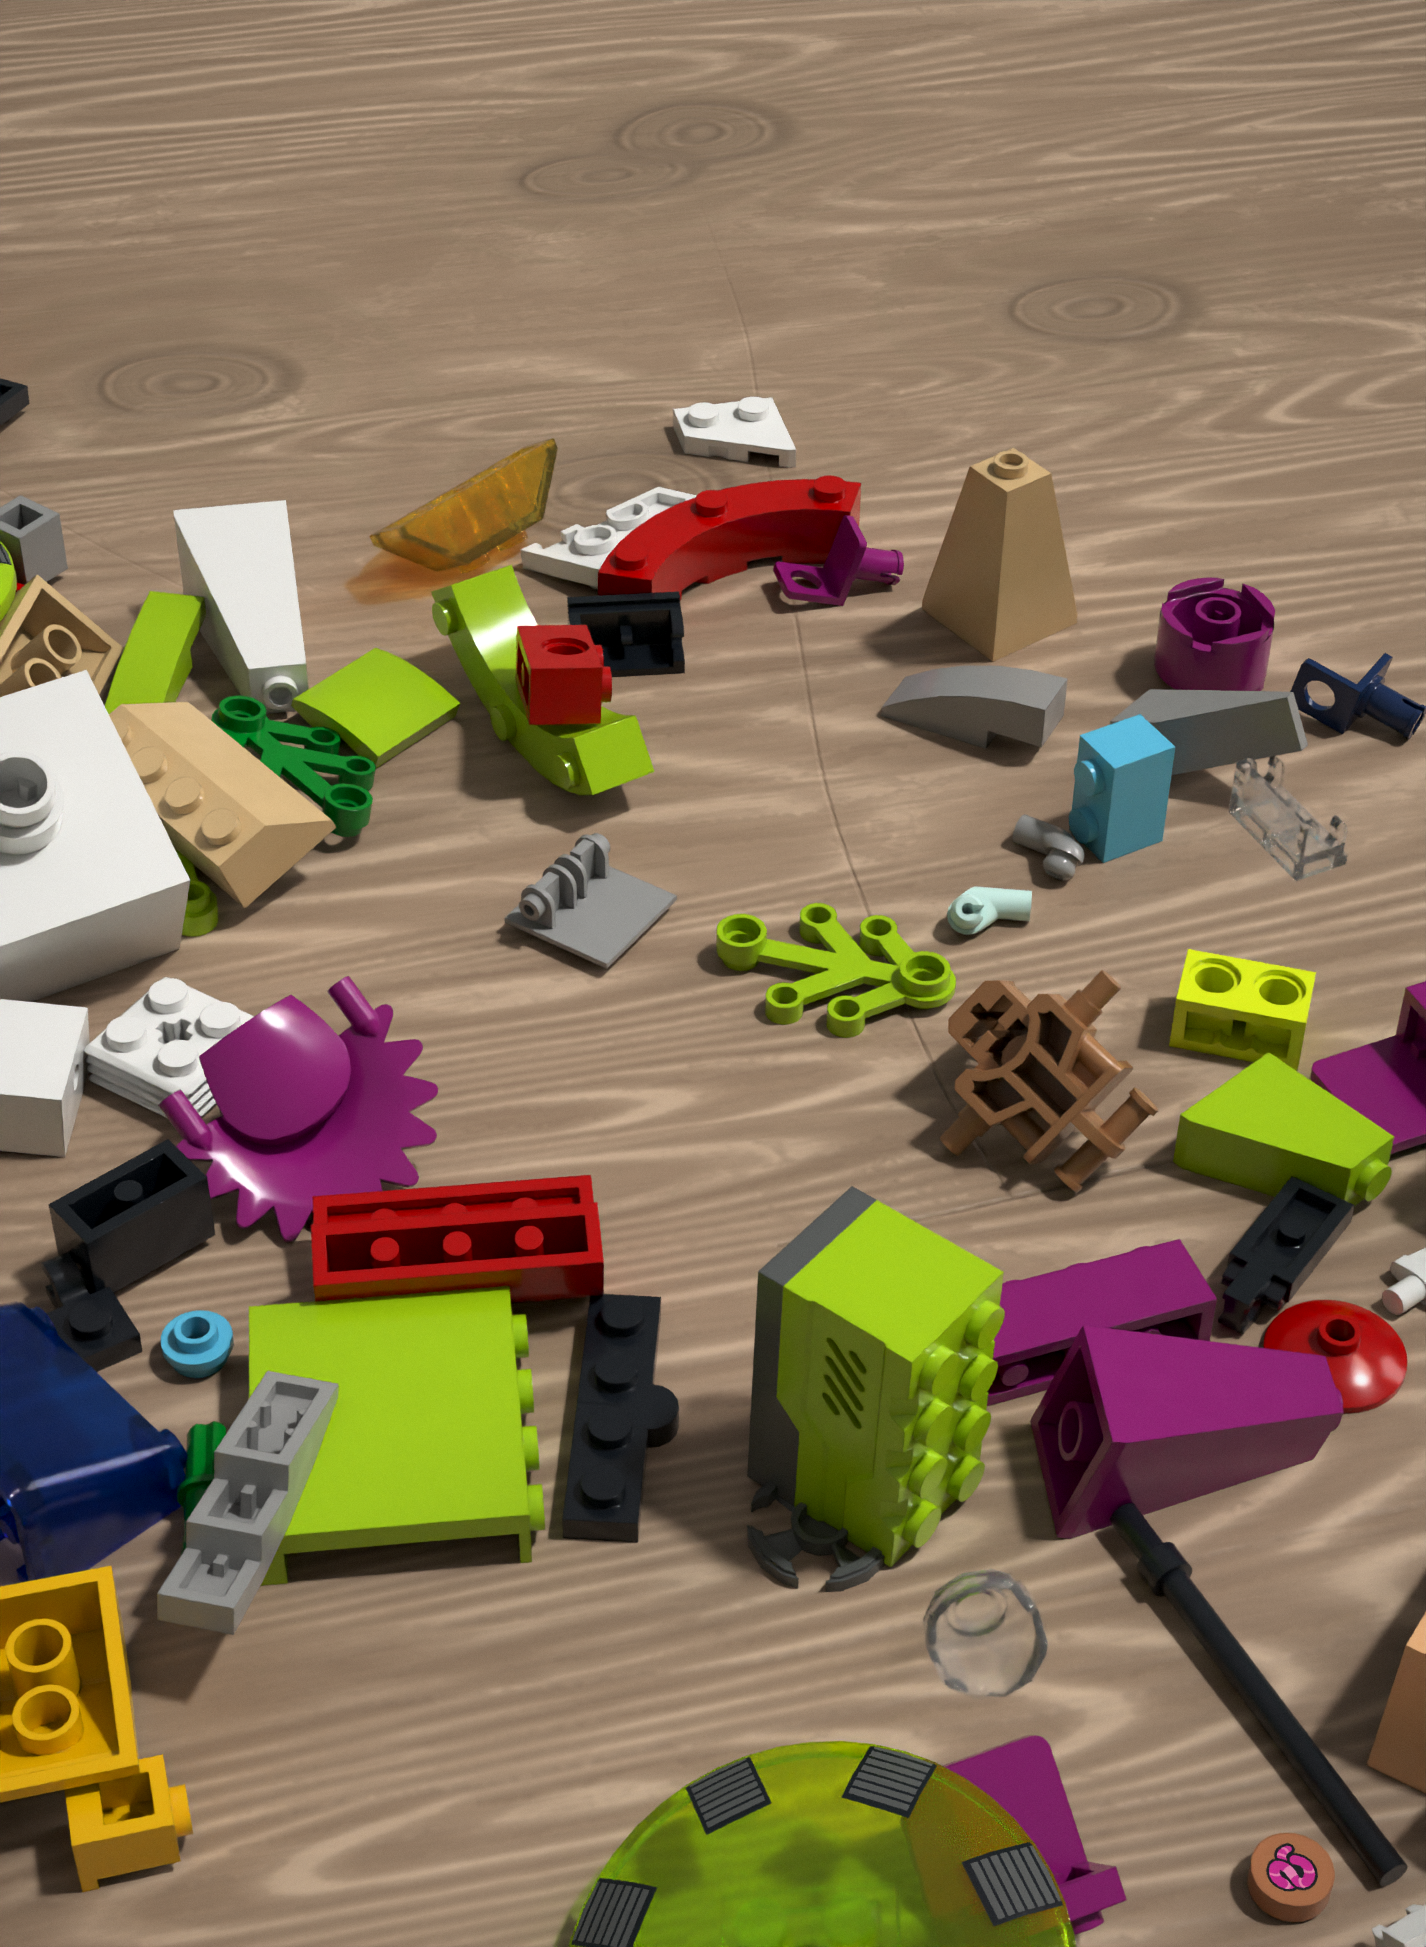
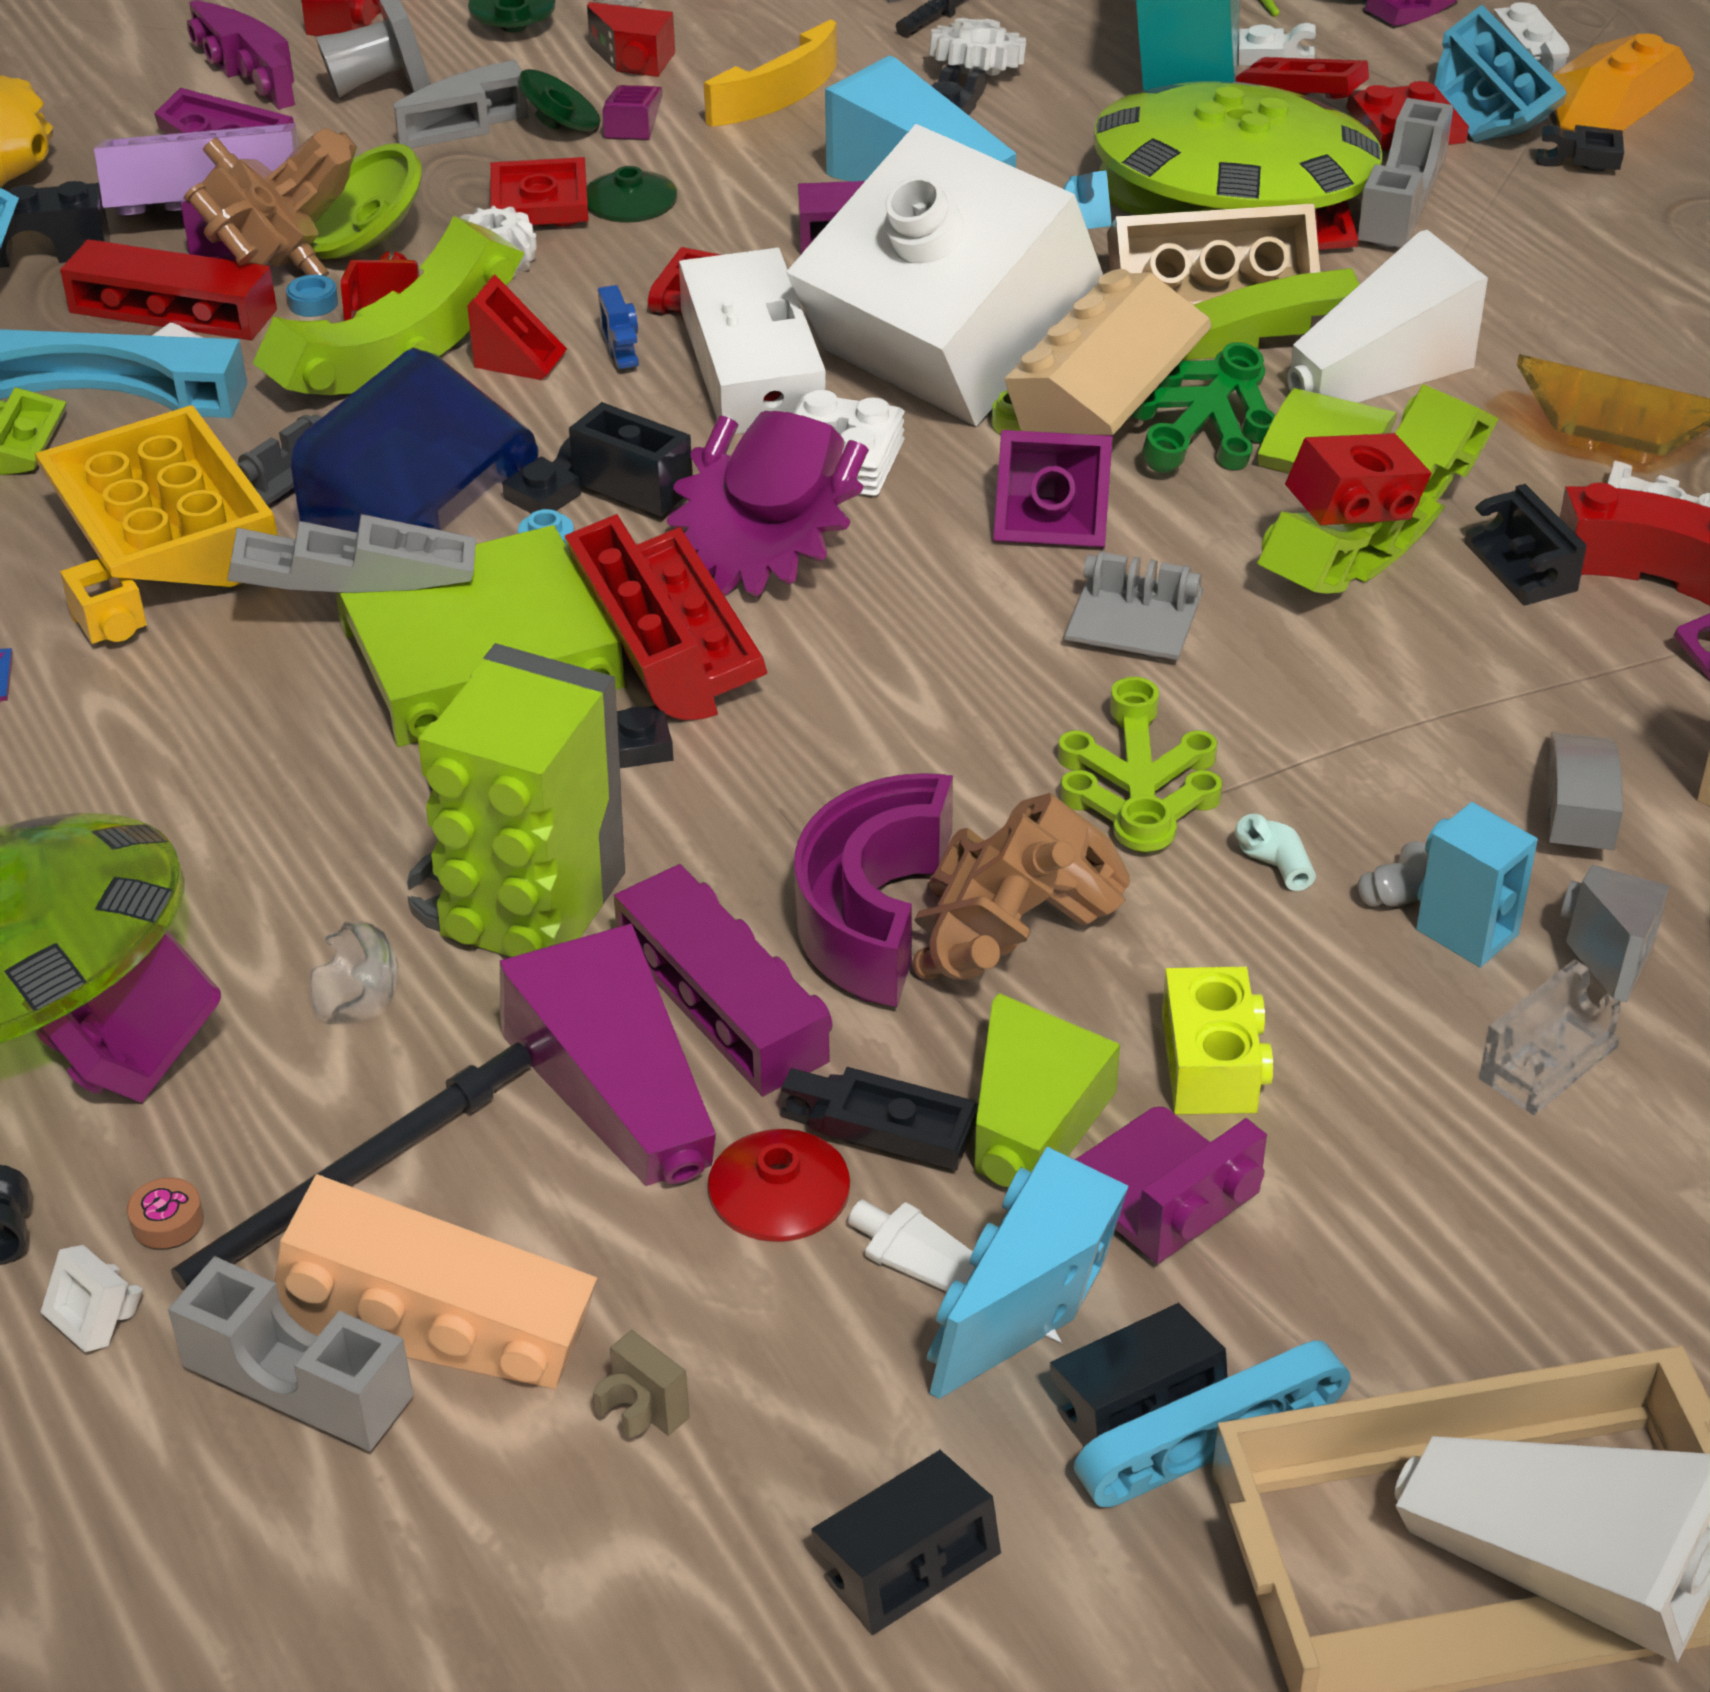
camera: 75 degrees right, 0 degrees up
(370, 906) = (1053, 488): none -> magenta slope
(985, 1203) = (850, 851): none -> magenta brick

